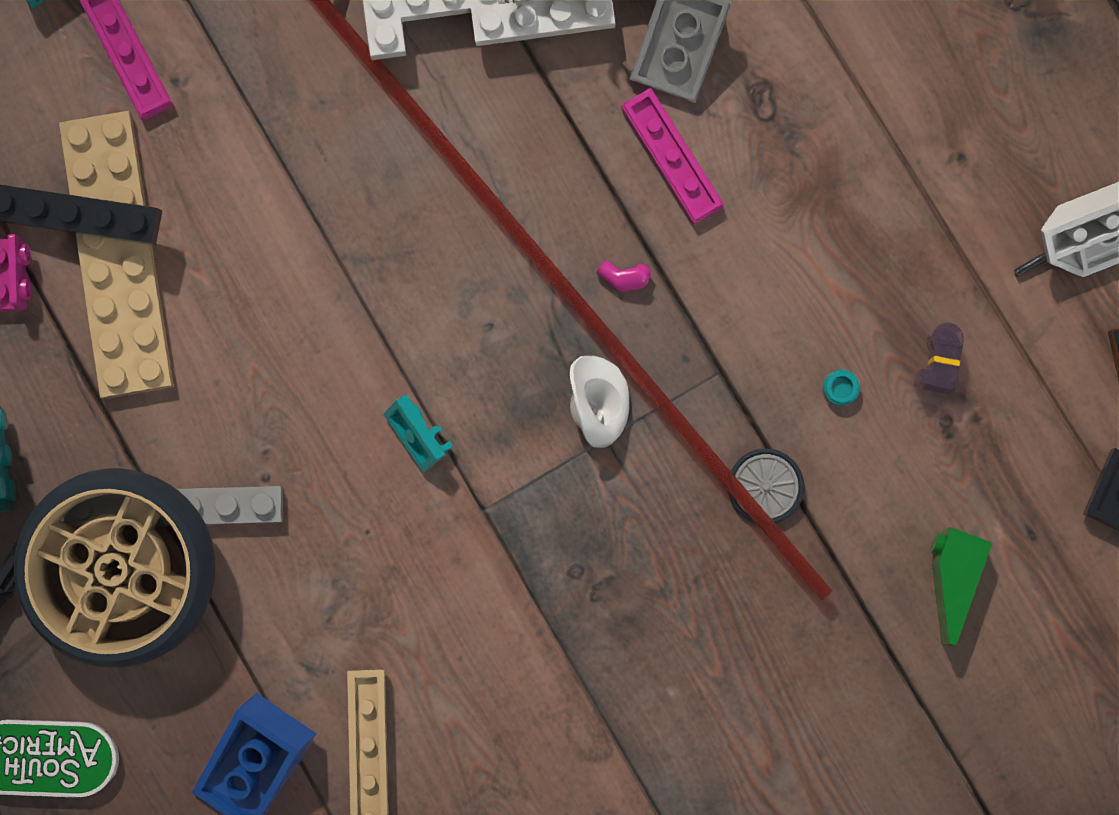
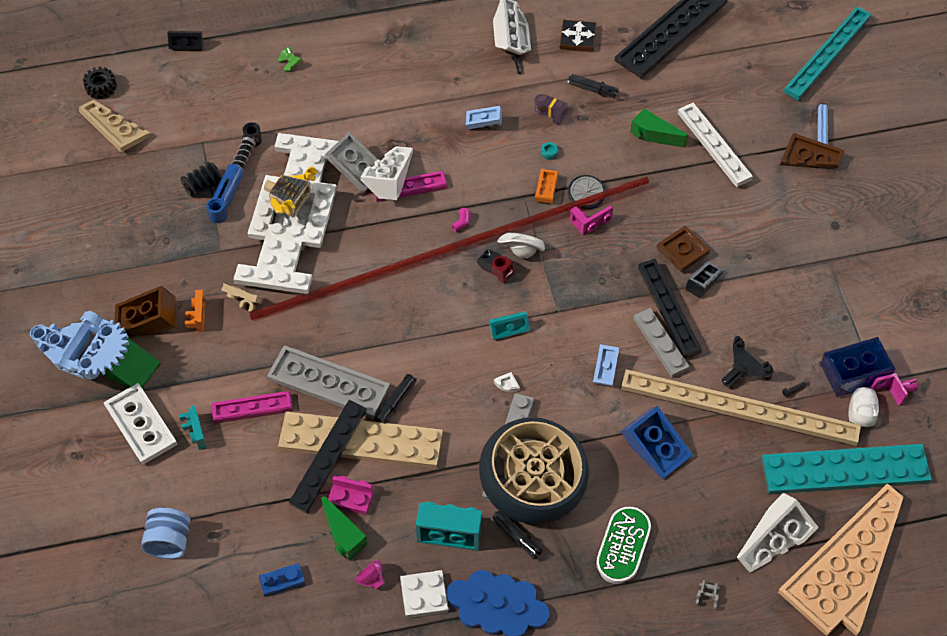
camera: 70 degrees left, 25 degrees down
(197, 282) = (391, 405): none -> black pin
(207, 160) = (327, 380): none -> light grey plate
(302, 466) = (507, 383): none -> white tile
(380, 631) = (606, 365): none -> light blue plate
(469, 716) = (661, 343): none -> light grey plate
(538, 369) = (496, 264): none -> dark red leg
(545, 713) = (669, 308): none -> black plate
(608, 748) = (697, 287): none -> black slope
(667, 108) = (388, 175): none -> white wedge
(688, 704) = (683, 248): none -> reddish brown plate
(692, 494) = (584, 224): none -> dark pink bracket
(751, 407) = (546, 186): none -> orange plate
(871, 240) = (484, 117): none -> light blue plate
(960, 703) = (715, 145): none -> white plate
(1028, 425) = (600, 88): none -> black axle

